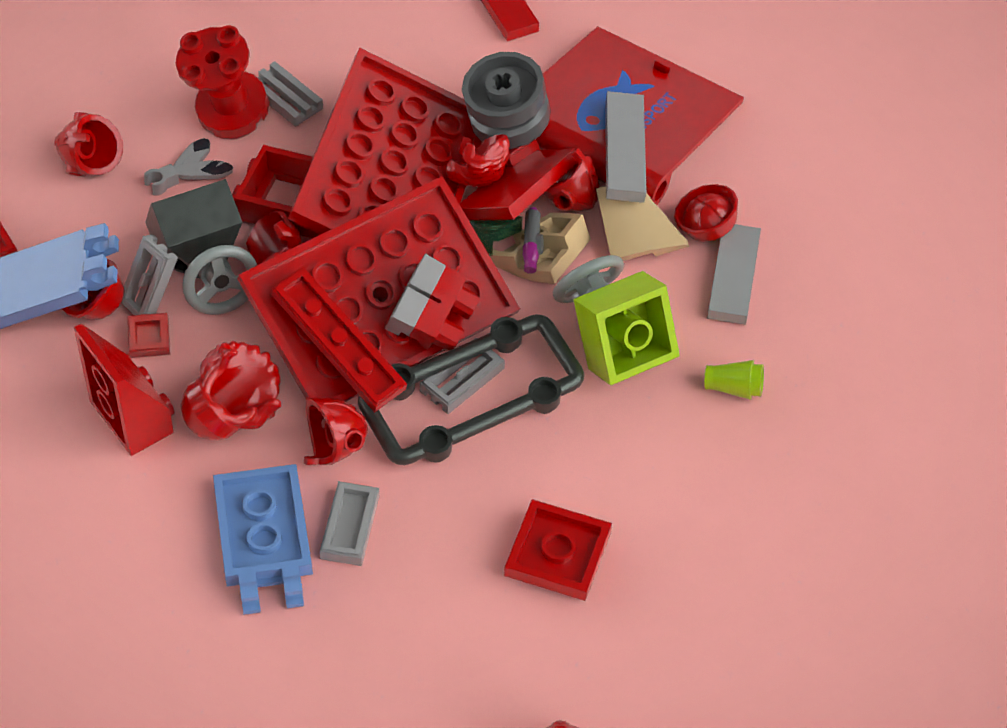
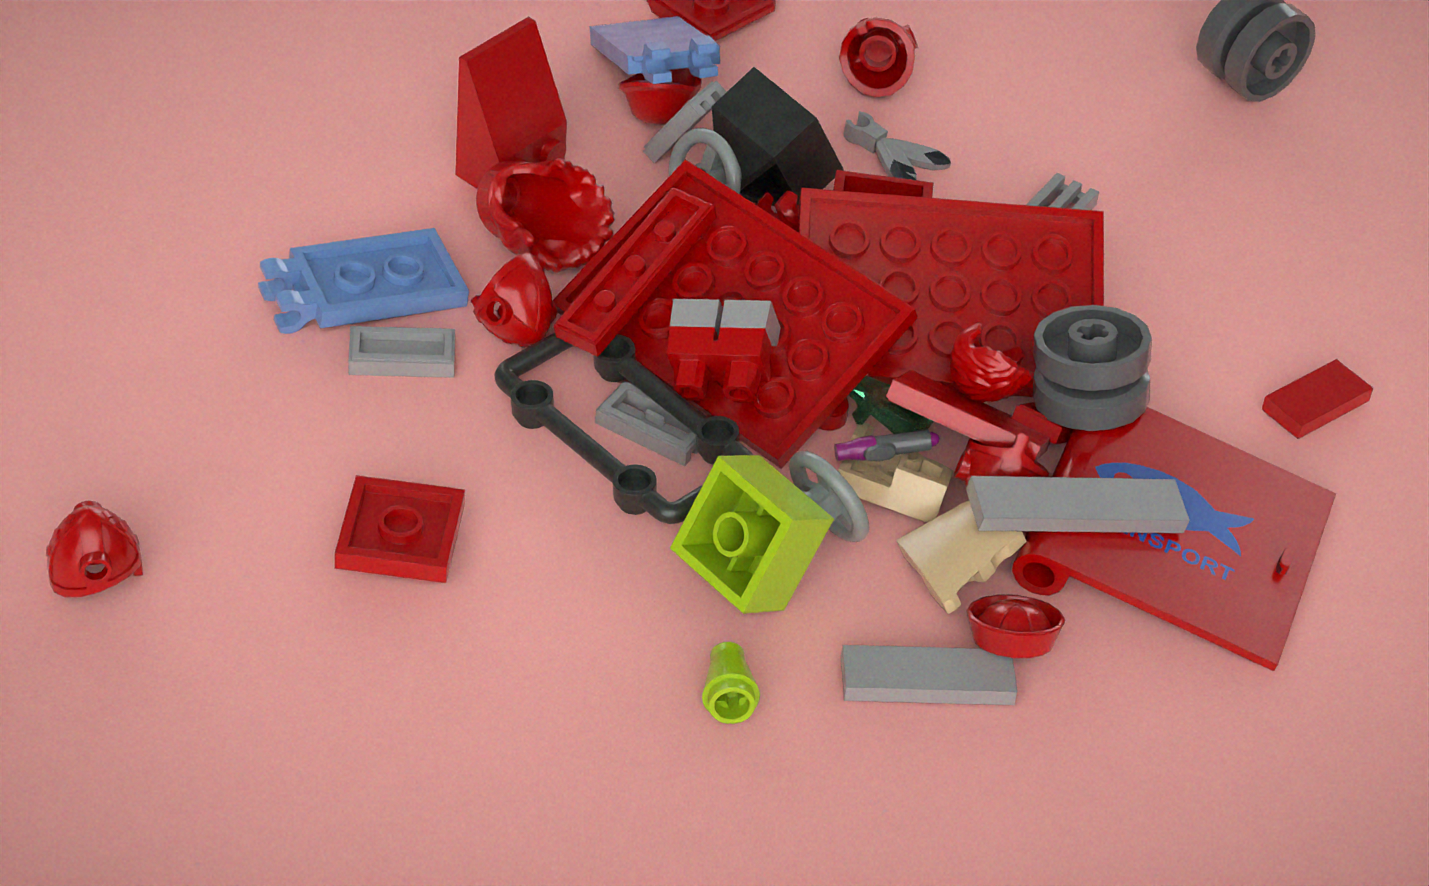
camera: 75 degrees right, 10 degrees down
(148, 335) = (622, 153): red tile -> none
(227, 96) = (1006, 155): red piece -> none

